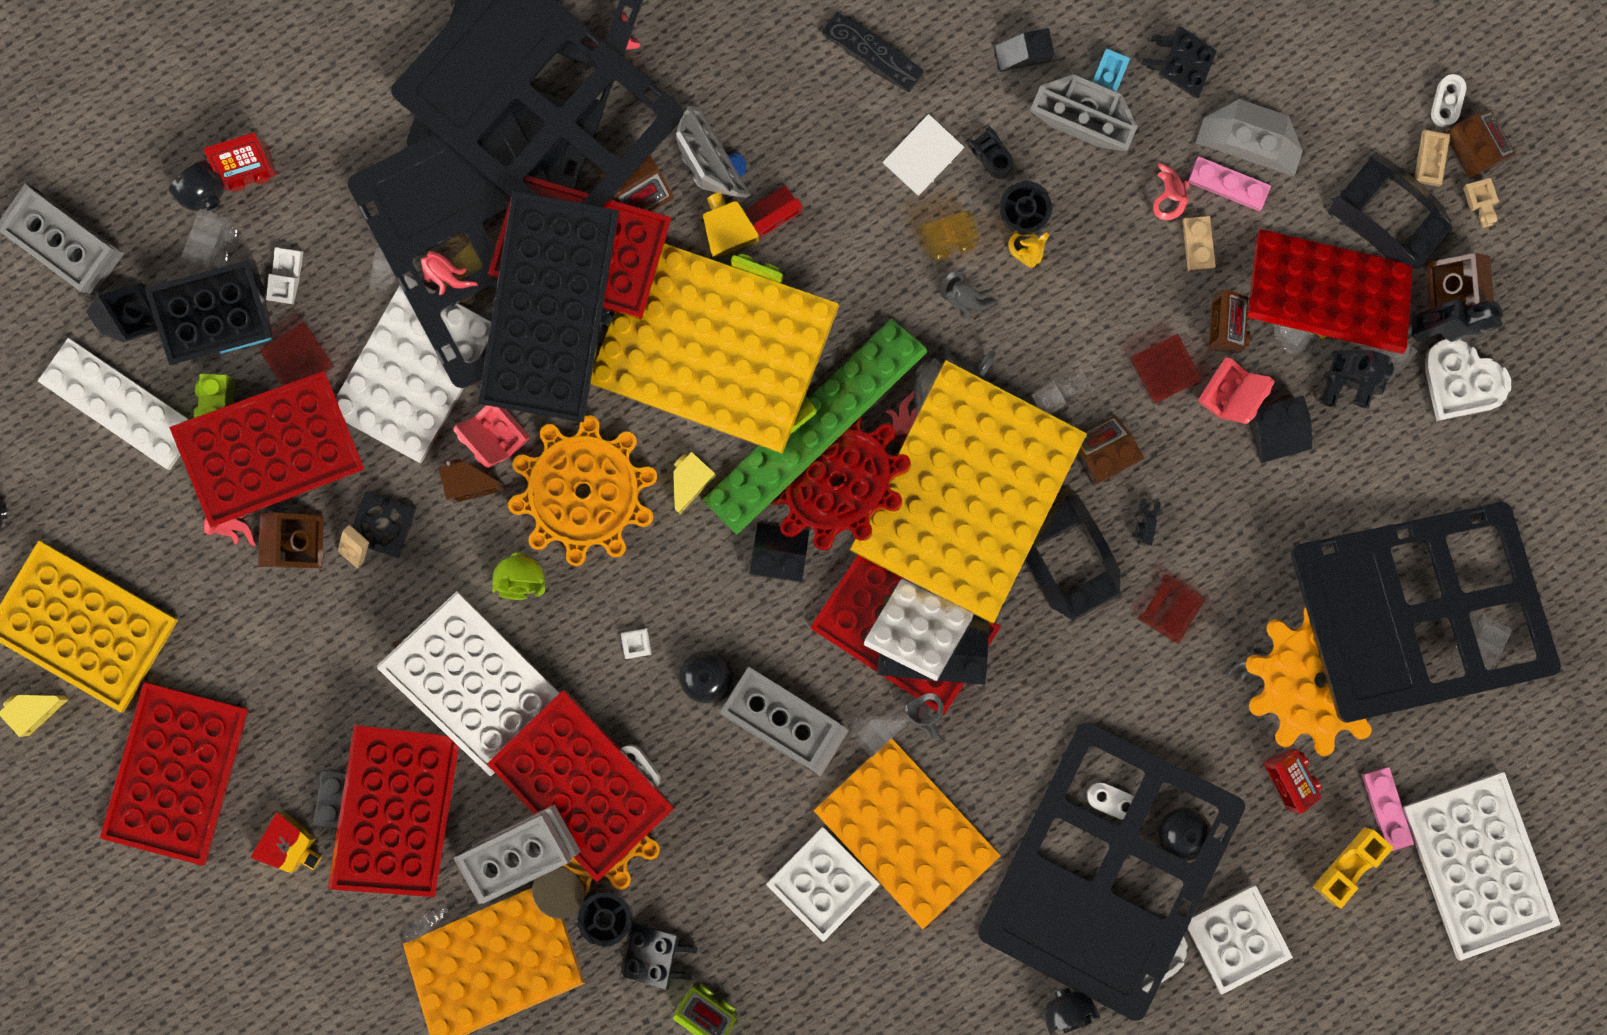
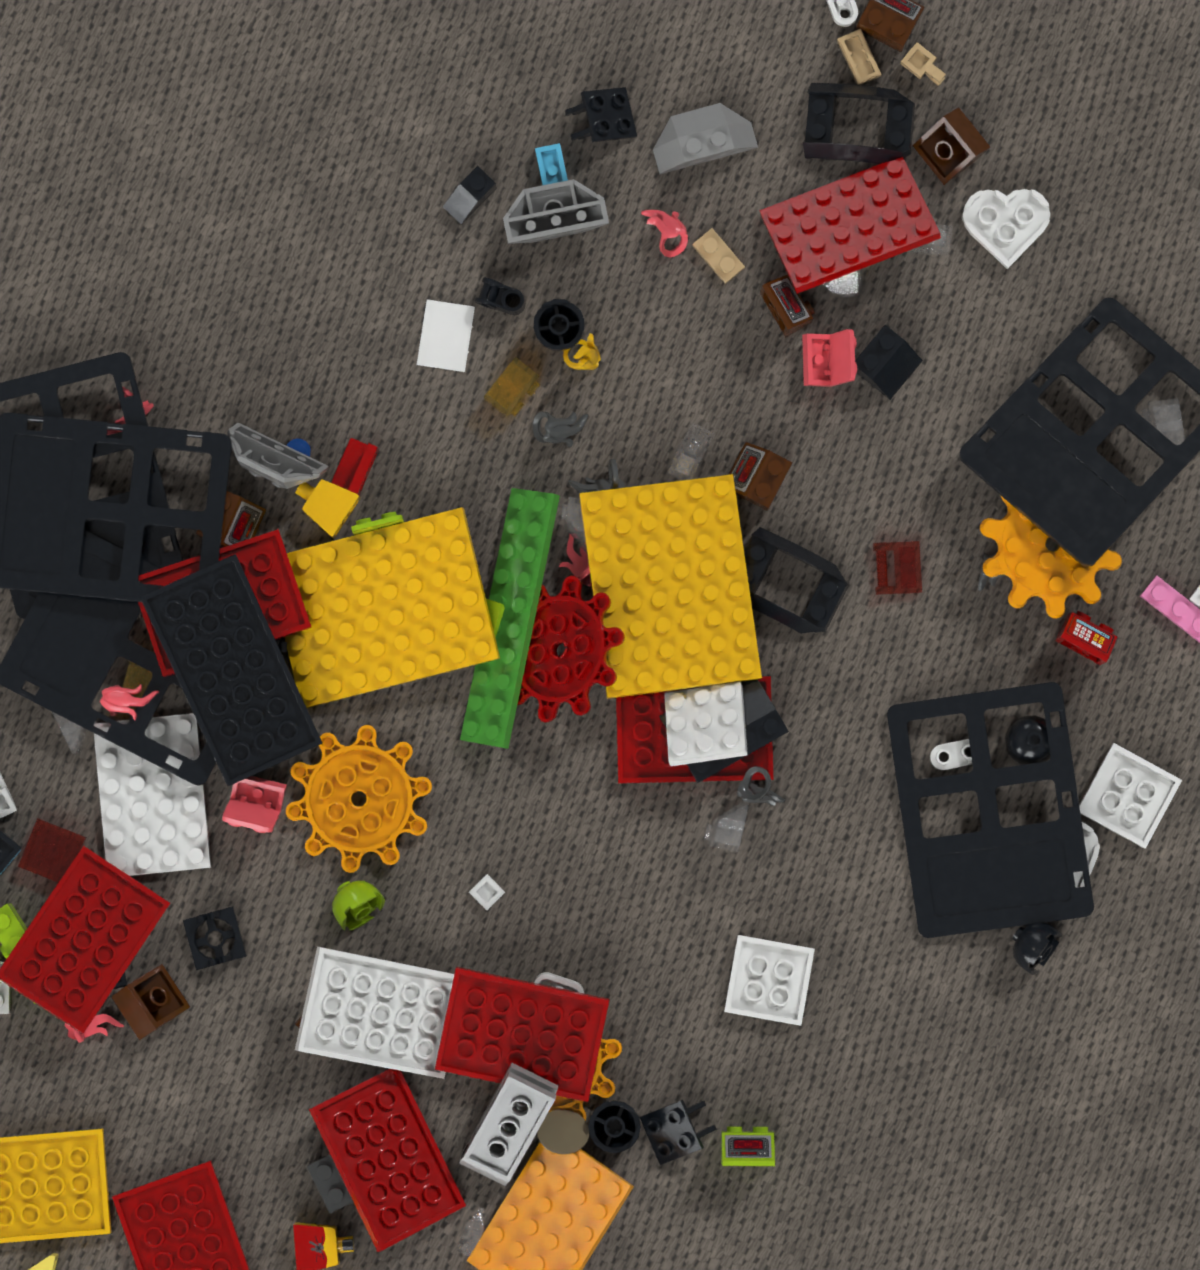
camera: 30 degrees left, 0 degrees up
(353, 546) = (206, 970): tan plate -> none
(466, 482) = (261, 855): reddish brown slope -> none
(689, 480) = (439, 730): light yellow slope -> none
(705, 677) = (561, 880): black cylinder -> none
(778, 555) = (552, 741): black slope -> none
(823, 732) = (686, 858): light grey hinge -> none
(873, 52) = (347, 281): black slope -> none
(907, 833) = (808, 893): light orange plate -> none
(1146, 530) = (833, 518): black plate -> none
(1165, 369) = (761, 377): clear red plate -> none
(1229, 184) = (709, 190): bright pink plate -> none
(1340, 879) = (1180, 665): yellow arch -> none
(1360, 370) = (917, 273): black piece -> none
(1457, 320) = (966, 179): black plate -> none

